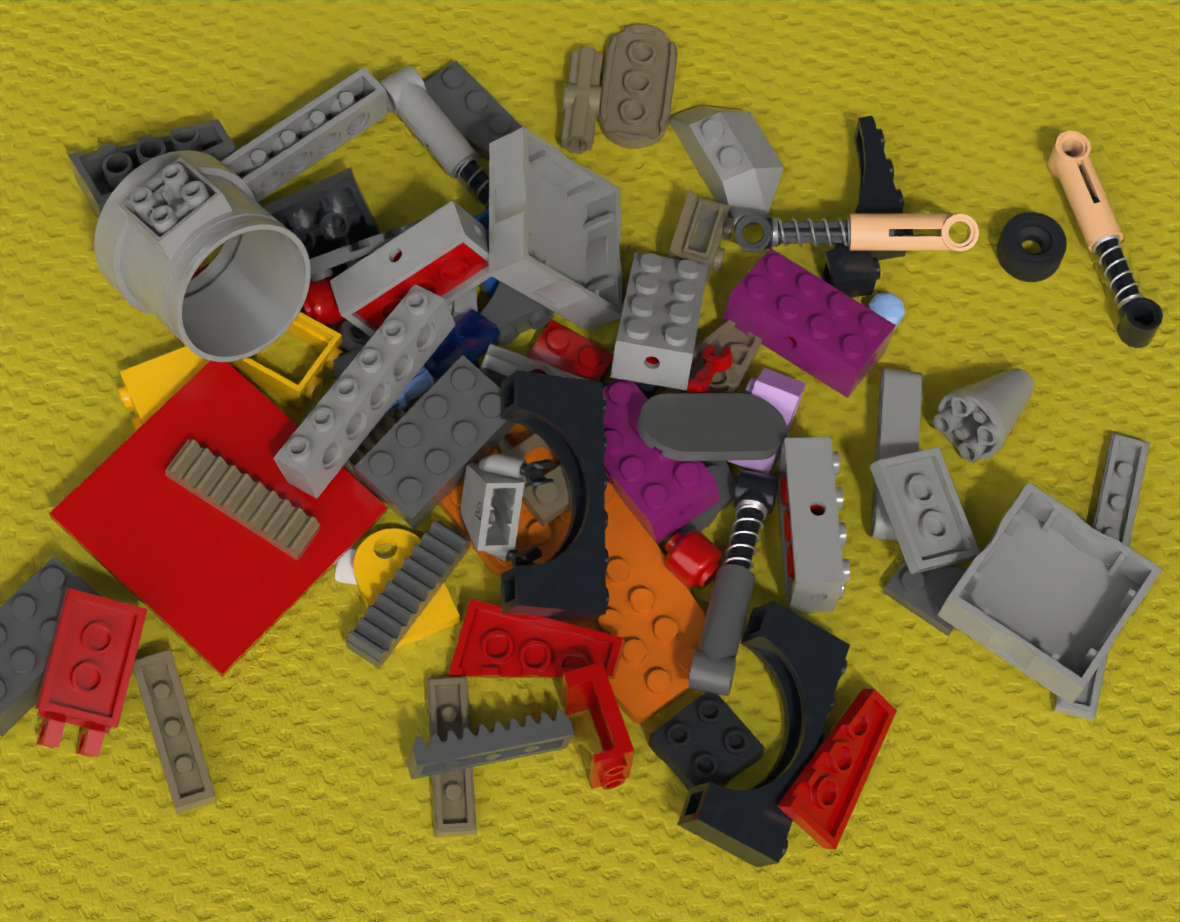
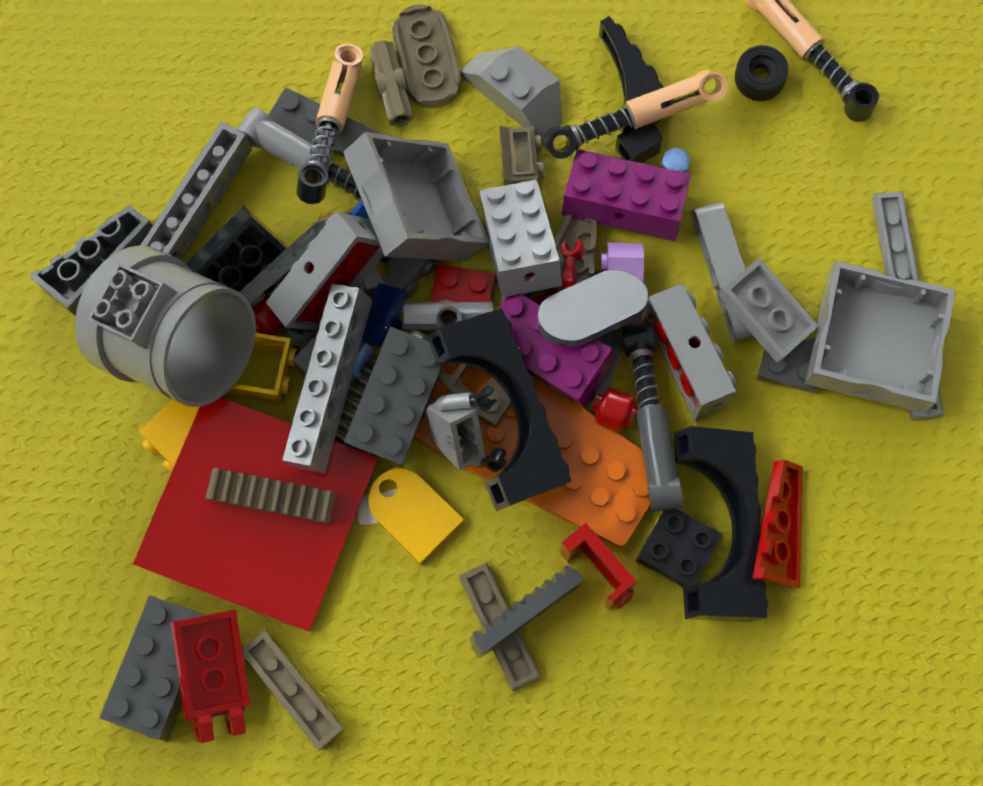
camera: 10 degrees left, 10 degrees up
(407, 594) = (419, 518): dark grey gear -> none
(490, 113) = (330, 122): none -> piece
(528, 646) = (525, 524): red wing -> none
(984, 413) = (779, 216): light grey cone -> none

